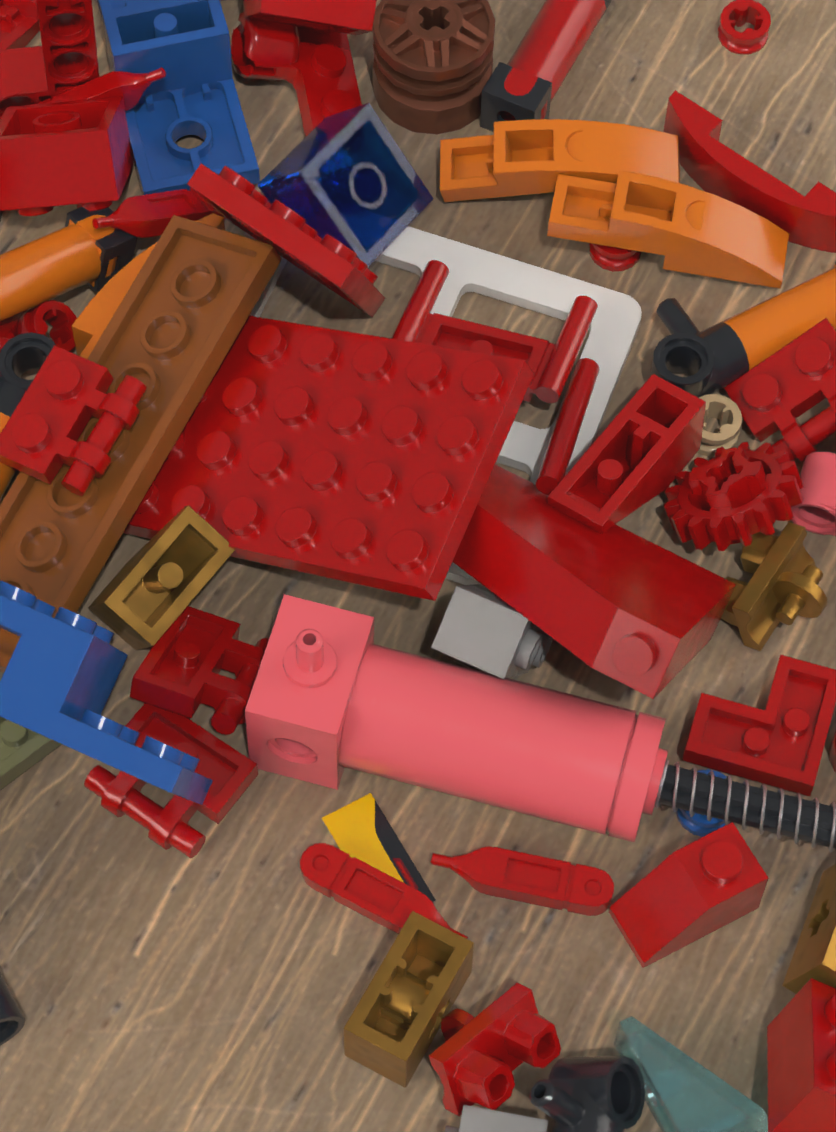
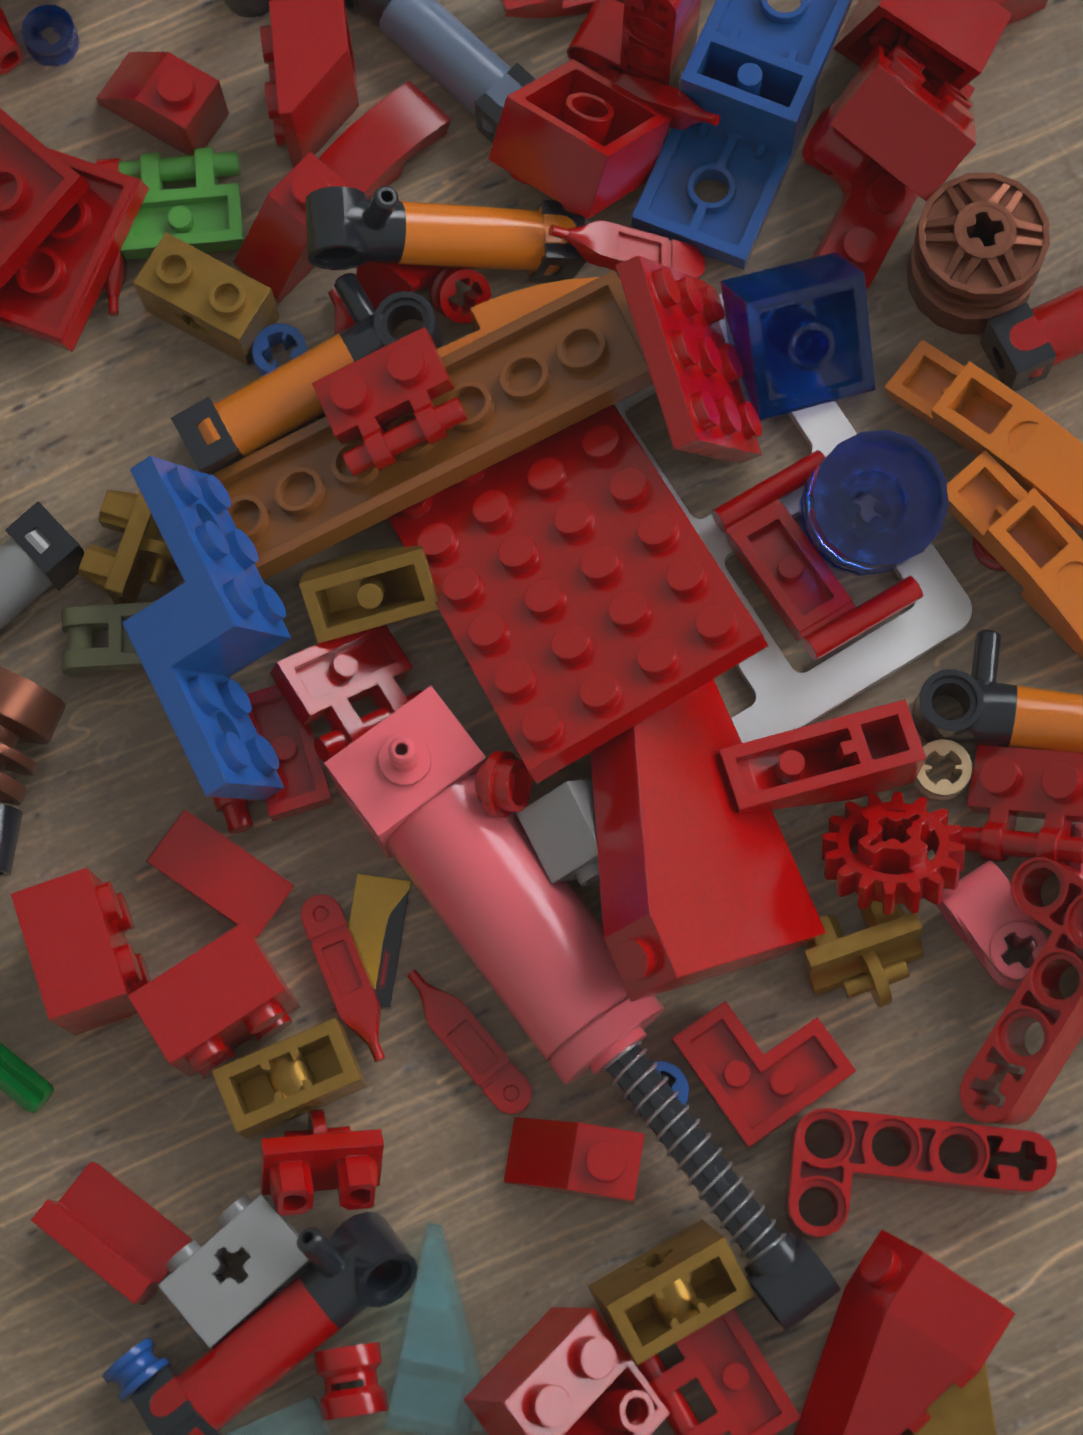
camera: 45 degrees right, 15 degrees up
(147, 1022) = (81, 950): none -> red brick
(207, 890) = (219, 873): none -> red slope
(298, 979) = (215, 1003): none -> red brick
(404, 627) = (503, 784): none -> red plate
(510, 255) = (907, 494): none -> clear blue wheel
(567, 425) = (804, 689): red bar -> none

